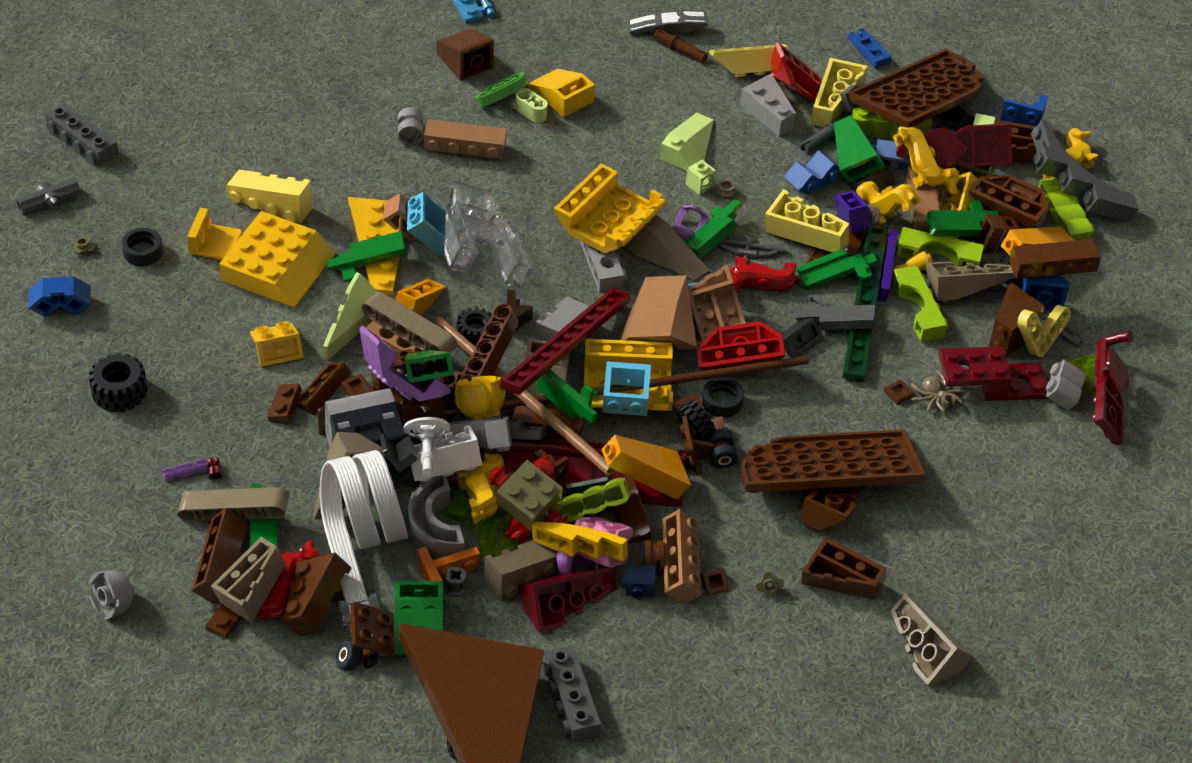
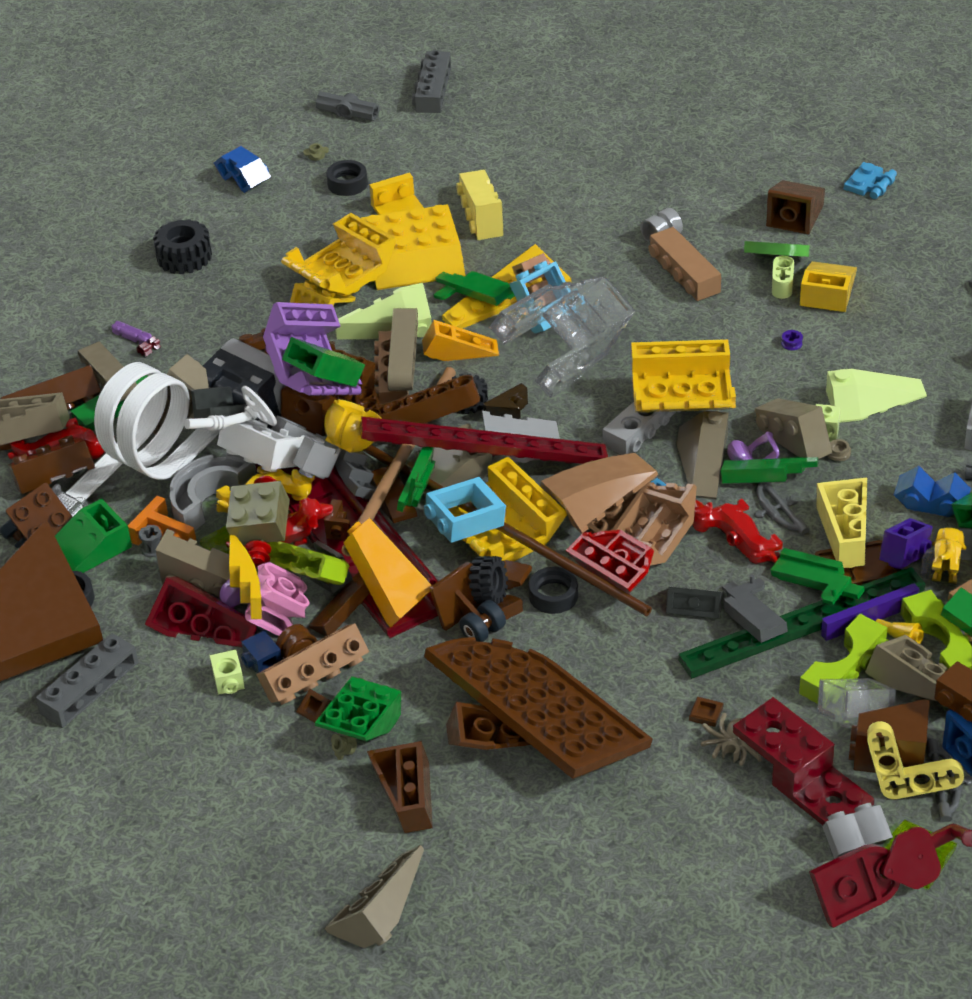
camera: 60 degrees right, 5 degrees down
(259, 295) = (348, 262): none -> yellow slope
(595, 146) = (792, 345): none -> dark purple bush
(641, 609) = (227, 672): none -> yellowish green brick
(696, 188) = (795, 426): none -> dark tan wedge
(757, 554) = (362, 710): none -> green slope
(970, 316) = (846, 698): none -> clear brick

